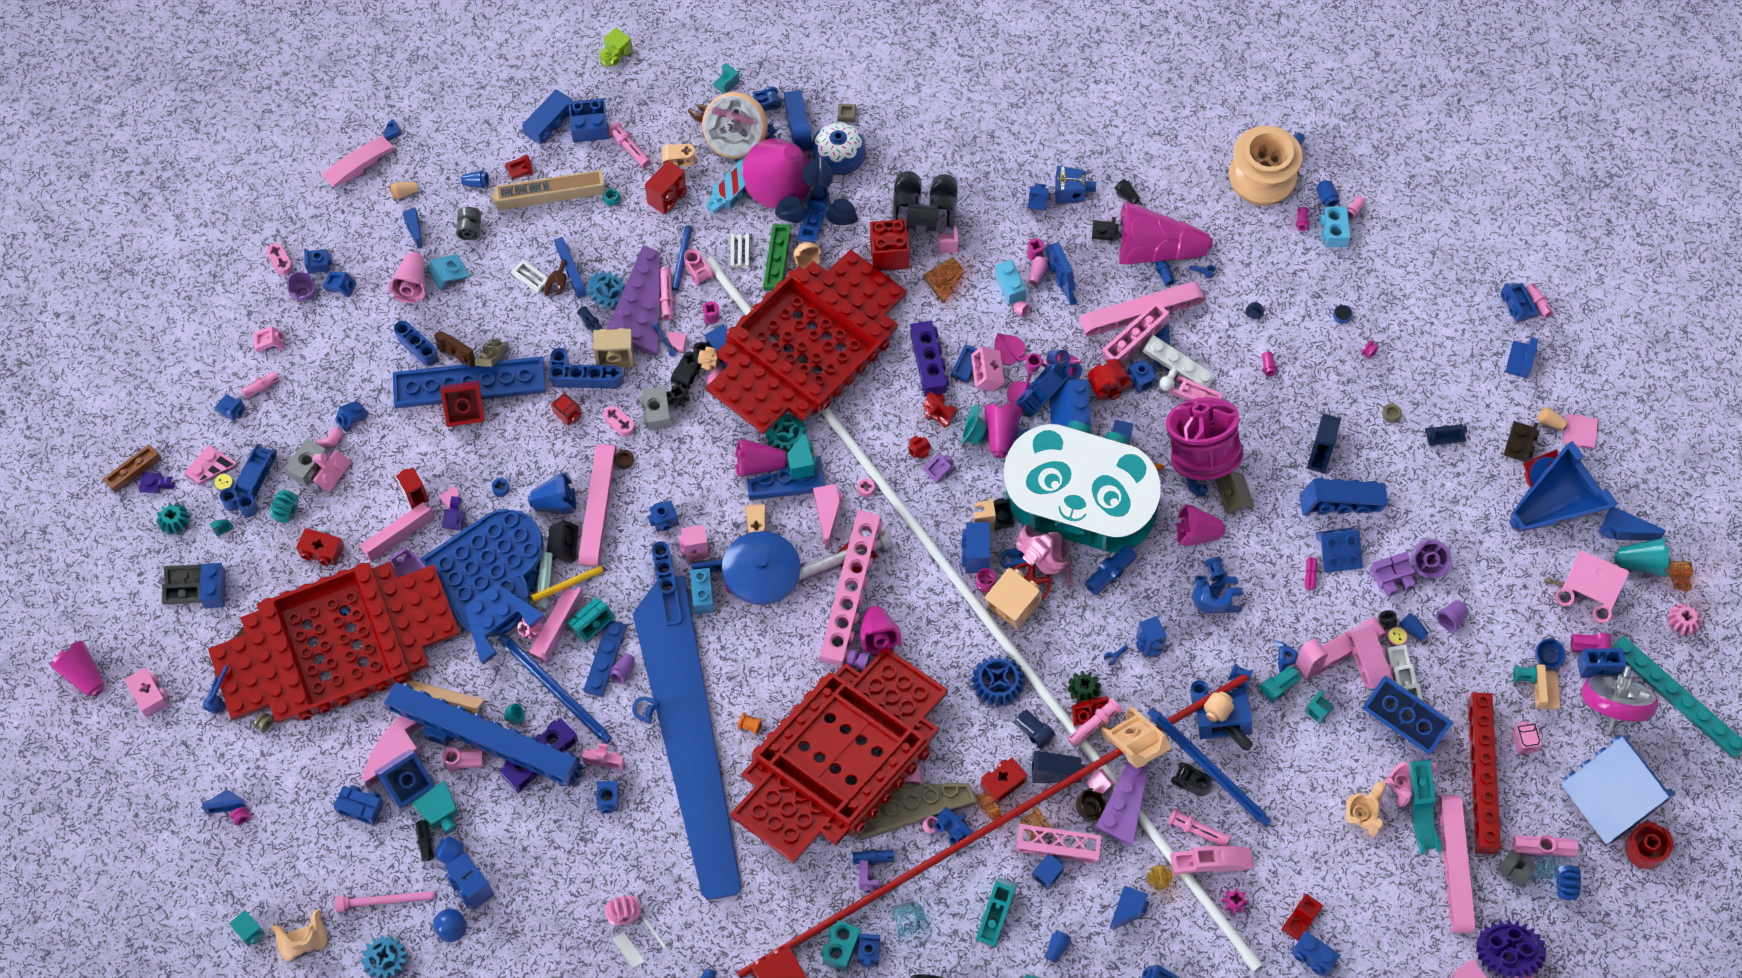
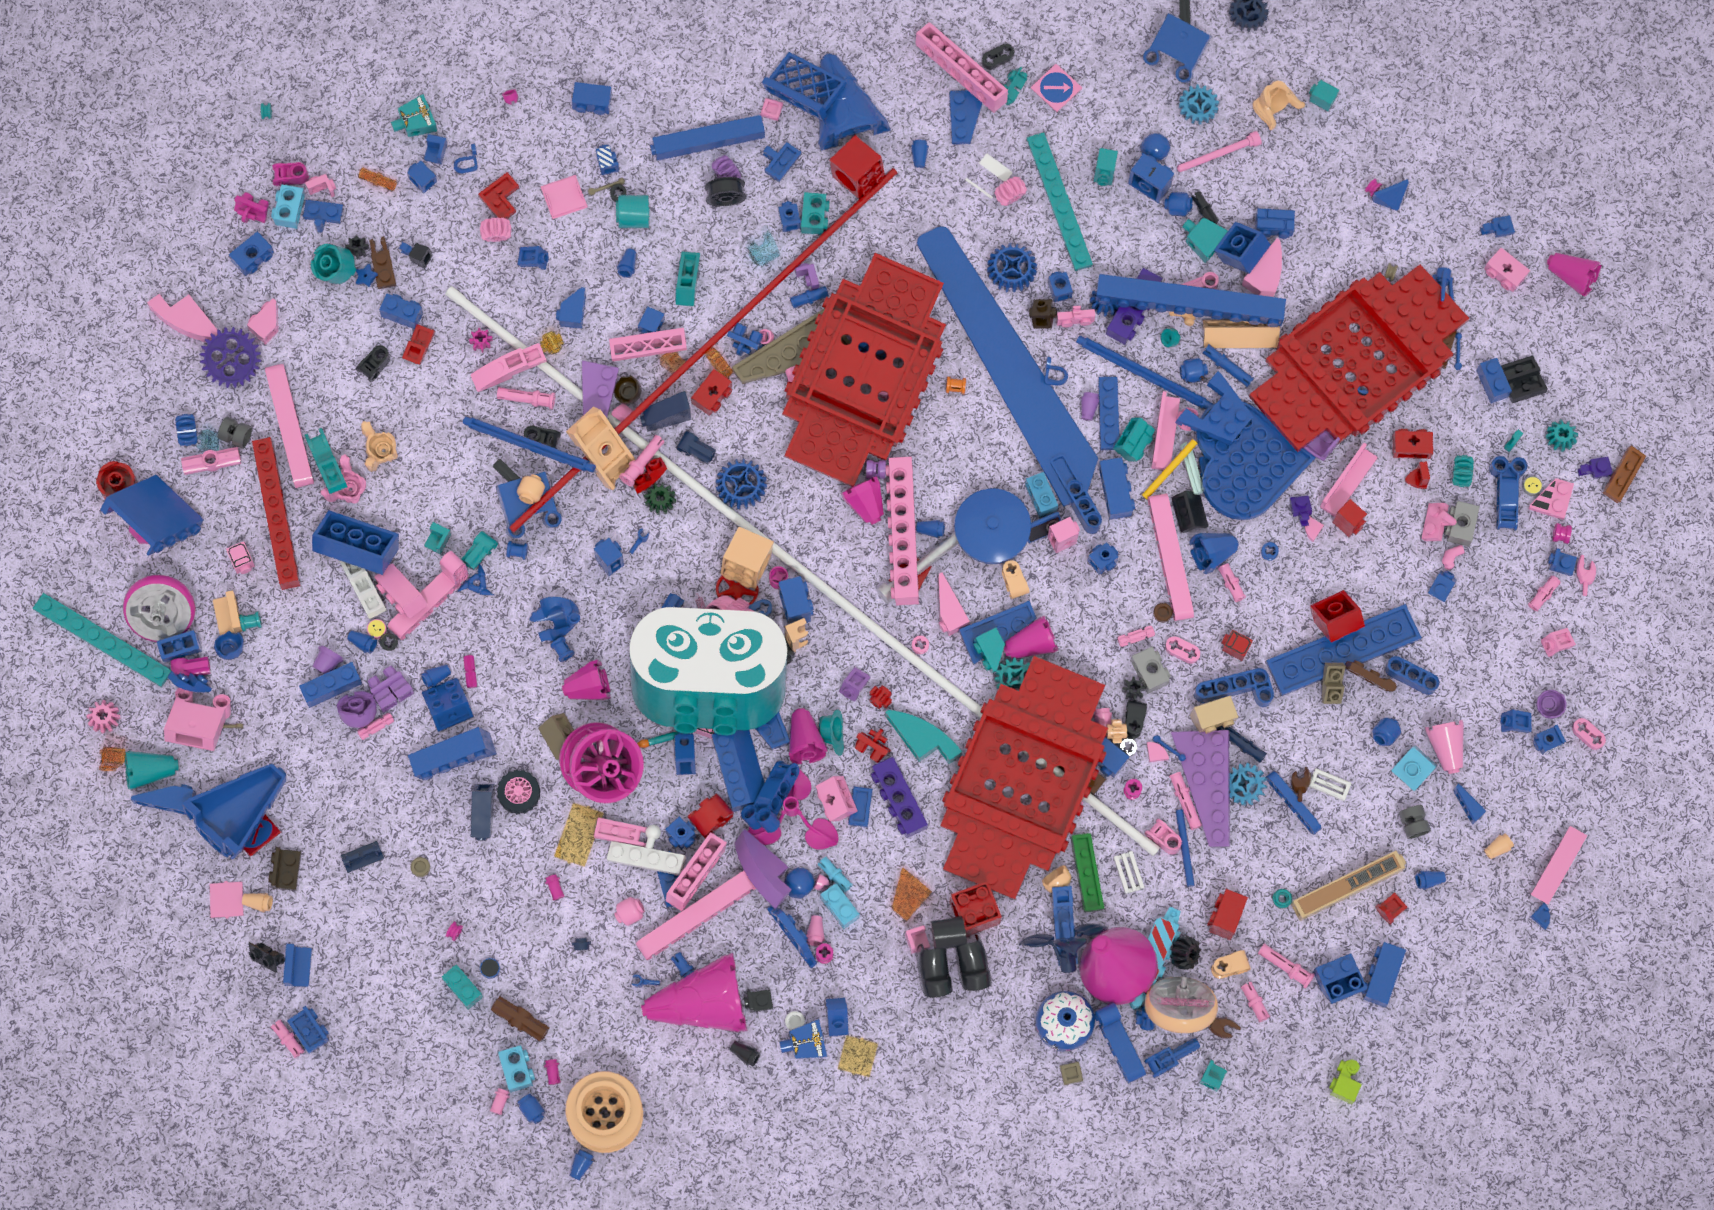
camera: 160 degrees right, 10 degrees up
(130, 741) = (1500, 226): none -> blue plate
(213, 389) = (1585, 576): none -> bright pink hand
(217, 430) = (1562, 533): none -> dark pink wheel
(239, 614) = (1458, 365): none -> blue hinge
(326, 516) = (1419, 477): none -> red tile
(460, 302) = (1386, 731): none -> blue head
(471, 677) = (1222, 361): none -> blue pin
(505, 673) = (1193, 370): none -> blue head
(512, 906) = (1105, 167): none -> teal brick
(548, 465) = (1231, 582): none -> bright pink pin
(574, 893) = (1059, 201): none -> teal plate
(625, 580) = (1116, 488): none -> blue brick
(639, 763) = (1042, 313): none -> dark brown brick
(642, 833) = (1002, 278): none -> blue gear
(655, 444) = (1136, 636): none -> bright pink axle
(667, 124) = (1255, 1002): none -> bright pink pin
(714, 169) = (1185, 953): none -> black gear
(820, 590) = (932, 528): none -> blue cone
(890, 404) = (922, 737): none -> teal slope
(1006, 311) = (835, 874): none -> medium azure pin
(1028, 169) = (857, 1056): none -> clear yellow piece
(1041, 314) = (800, 881): none -> blue hair
(1073, 325) = (762, 868): none -> medium lavender slope
(1076, 208) = (794, 1020): none -> white tile
(1204, 325) = (629, 911): none -> bright pink head
(1243, 397) = (578, 835): none -> clear yellow piece
(1286, 452) = (518, 792): none -> black wheel
(1323, 264) = (520, 1019): none -> reddish brown piece
(1346, 576) = (435, 675): none -> blue cone
(1356, 904) = (371, 366): none -> black piece
(1371, 300) = (462, 987): none -> teal brick
(1408, 547) = (375, 726): none -> bright pink axle
(1445, 591) = (330, 684): none -> blue brick
(1554, 373) = (265, 956): none -> black hinge
(1595, 622) = (190, 683): none -> blue slope

